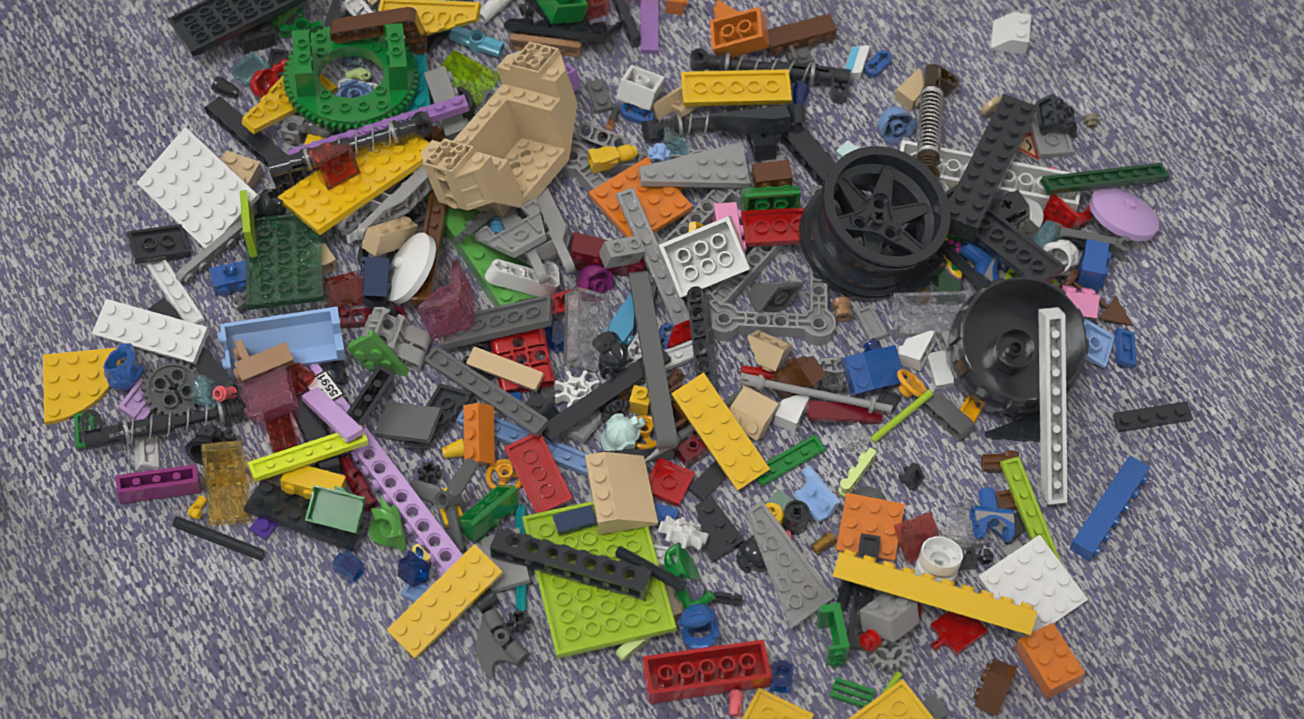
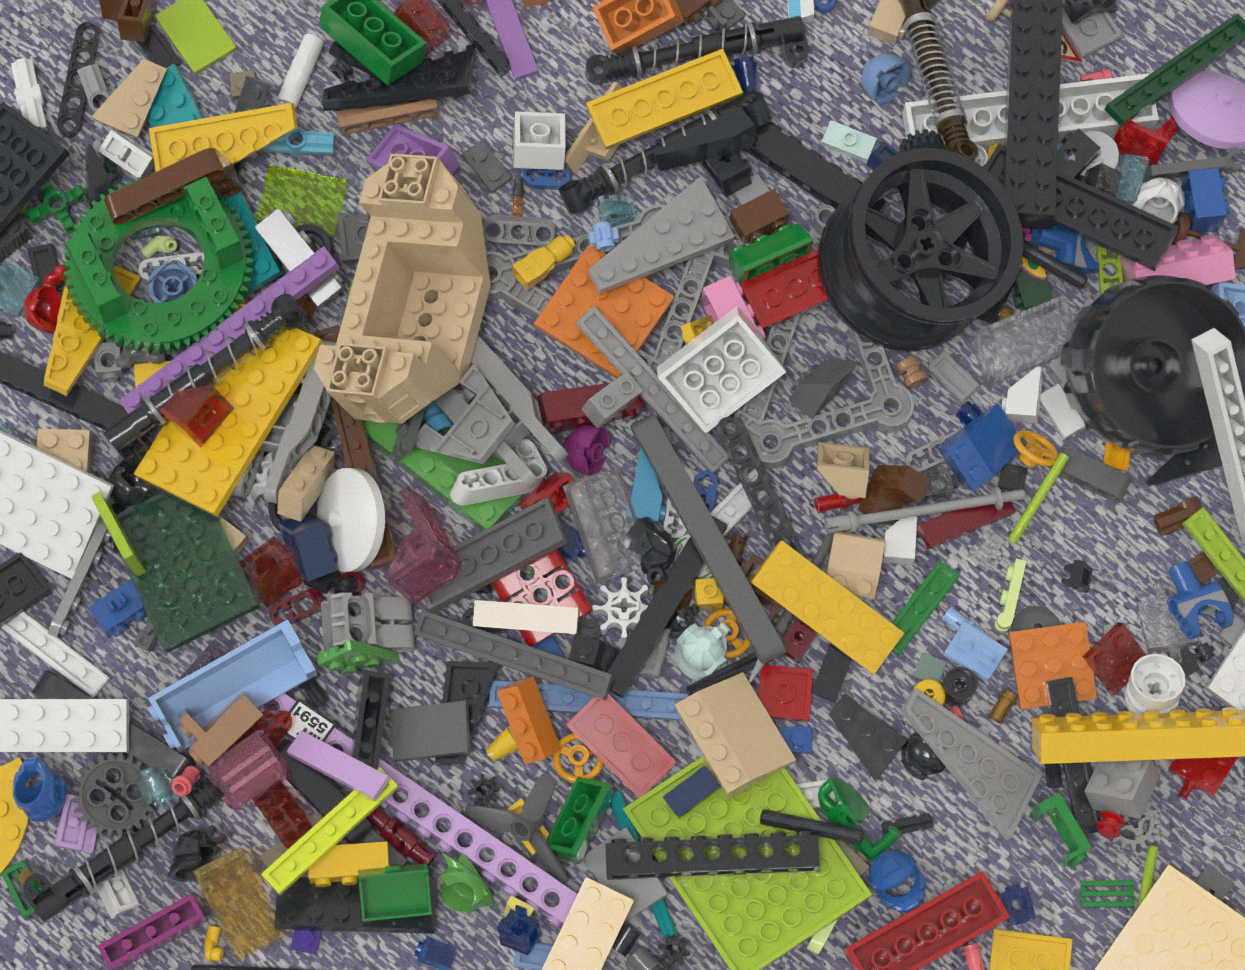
camera: 20 degrees left, 15 degrees up
(680, 333) = (723, 481): red tile -> none
(683, 532) = (830, 760): white gear -> none

